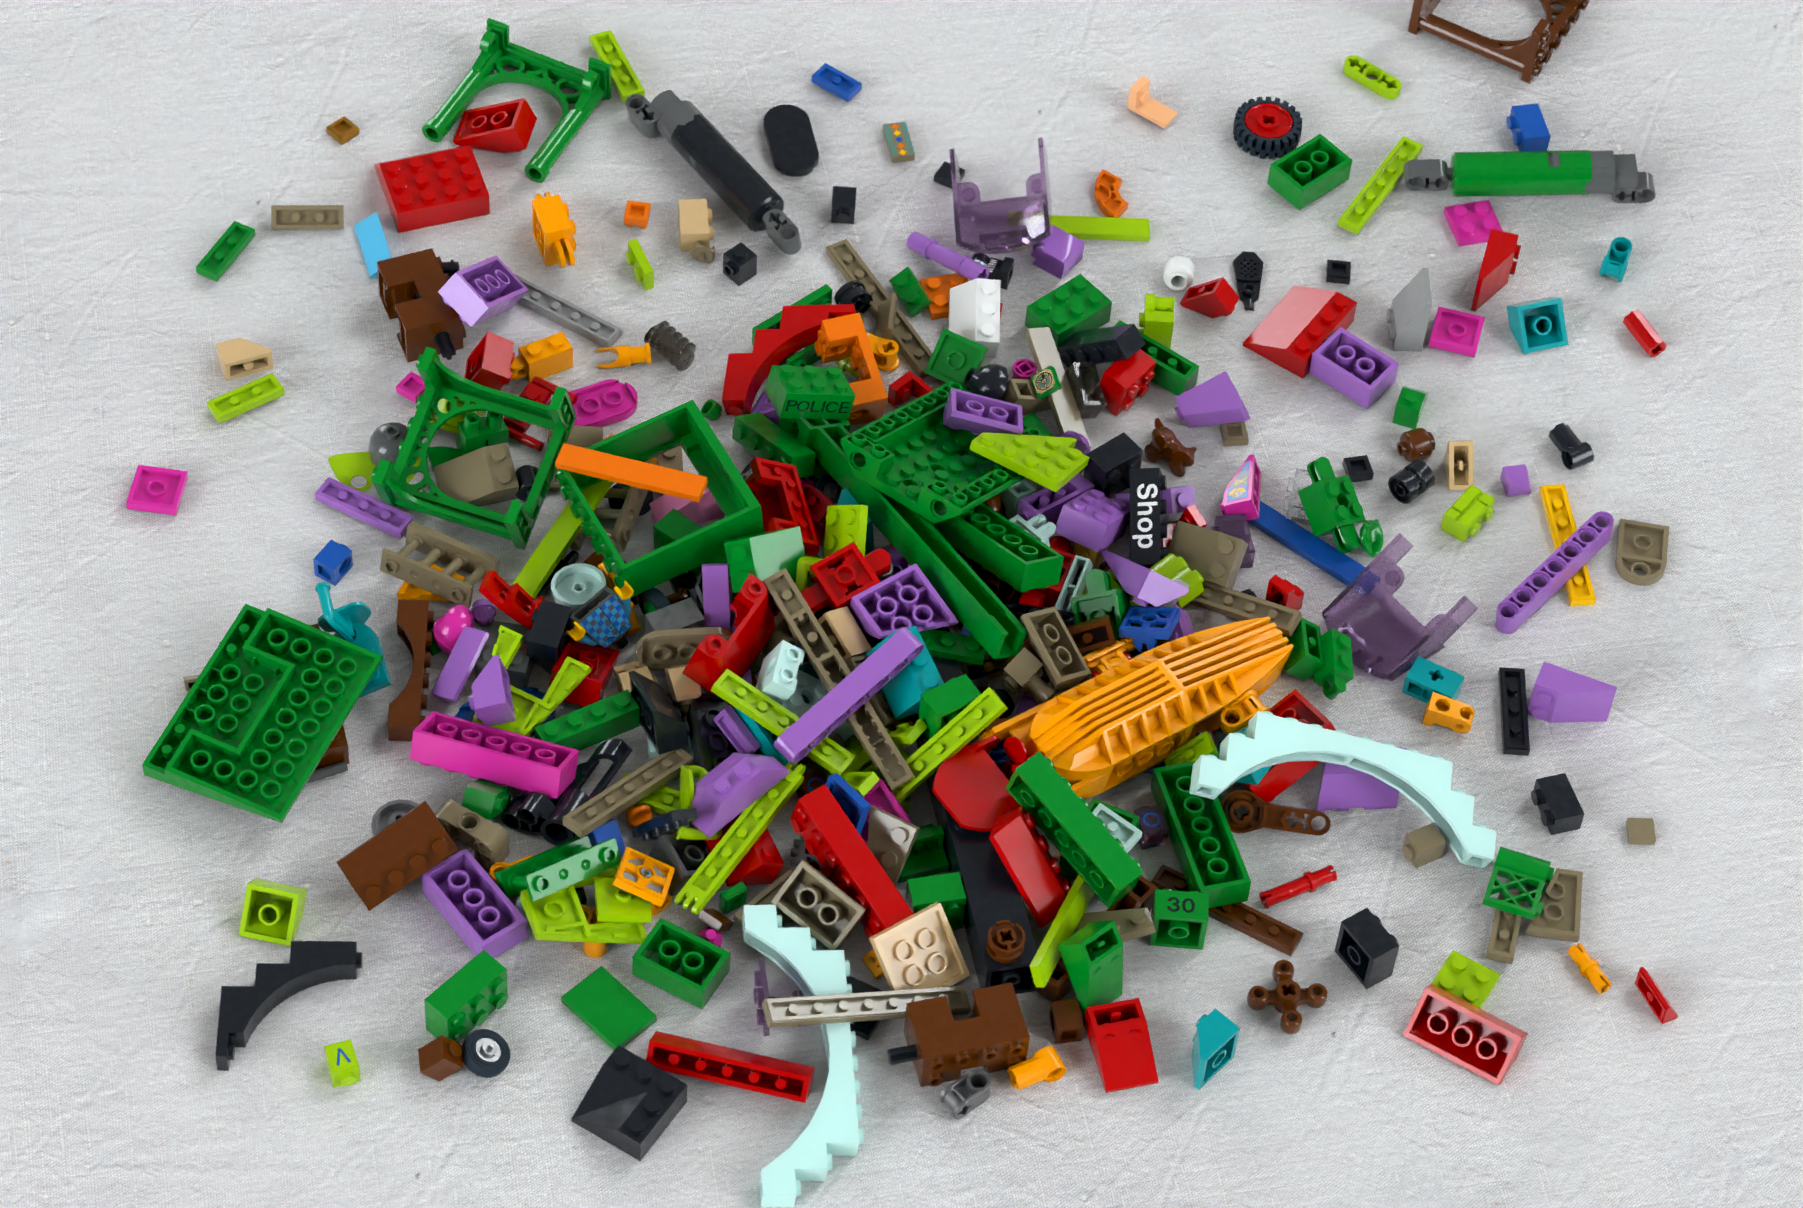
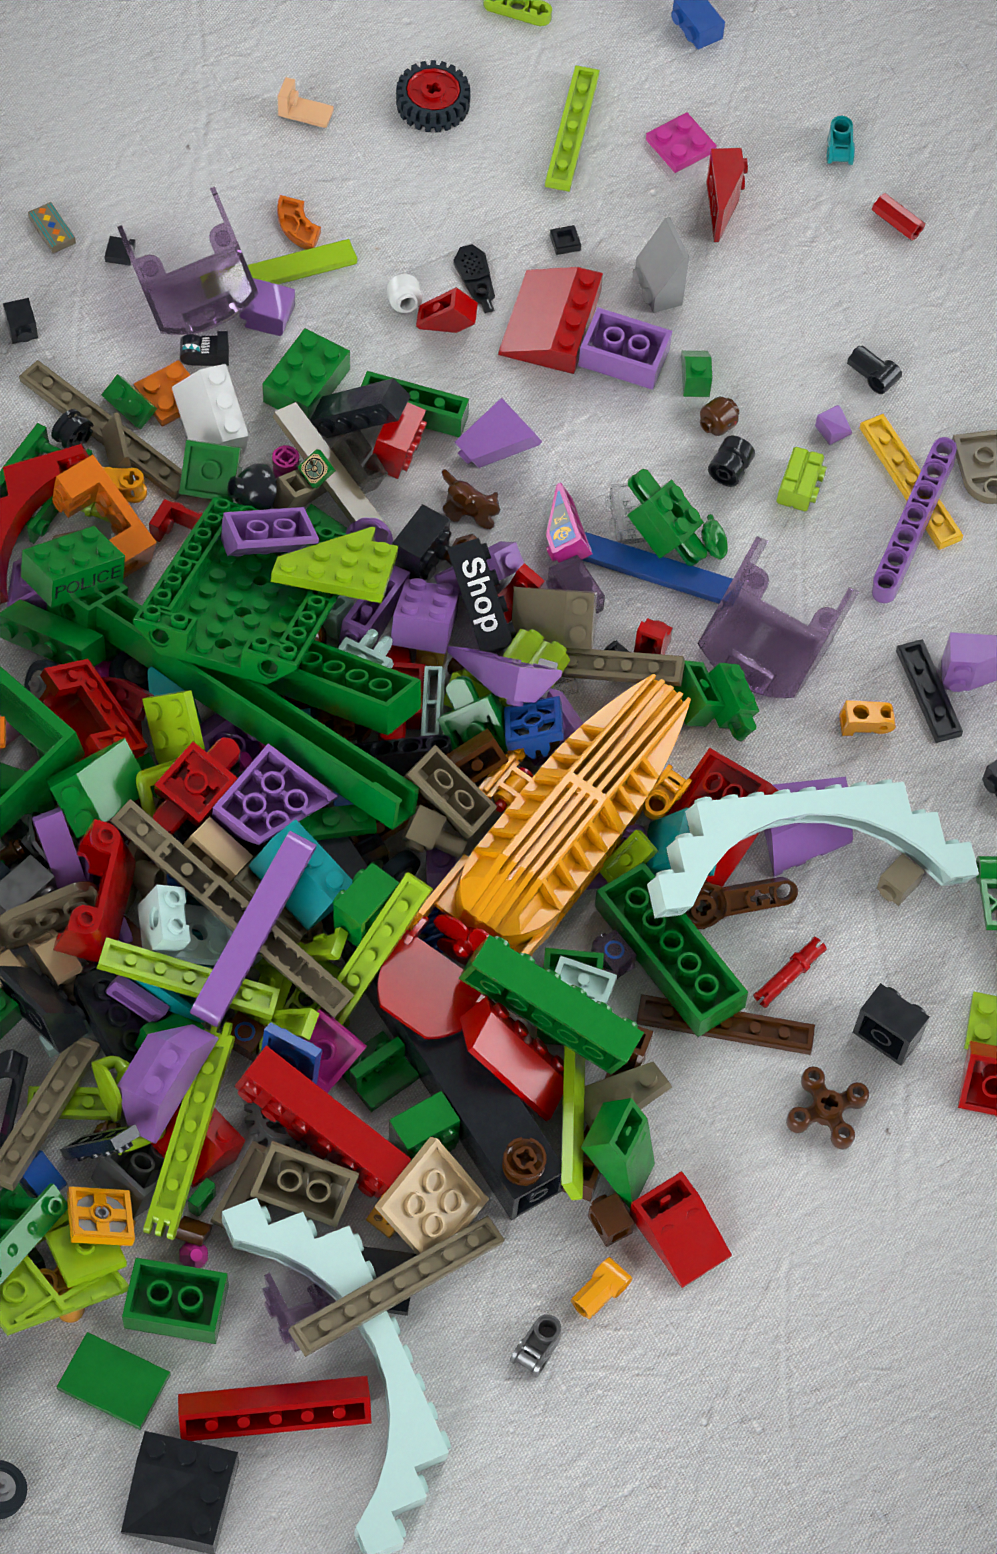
camera: 20 degrees left, 10 degrees up
(638, 814) = (63, 1132): orange tile -> none
(890, 841) = (352, 1078): dark tan wing -> none
(943, 1047) = (498, 1304): reddish brown piece -> none
(946, 257) = (155, 350): medium lavender piece -> none
(1157, 318) = (406, 357): lime hinge -> none
(1179, 919) = (688, 1056): green brick -> none
(1213, 1046) = (774, 1196): teal slope -> none
(1234, 434) = (528, 462): dark tan tile -> none
(1309, 171) = (496, 135): green brick -> none
(1358, 468) = (670, 462): black plate -> none
(1429, 677) = (835, 685): teal brick -> none
(1456, 331) = (712, 273): dark pink plate -> none
(1459, 464) = (772, 426): tan slope -> none
(1534, 174) = (723, 71): piece -> none
(1538, 324) = (789, 238): teal slope -> none

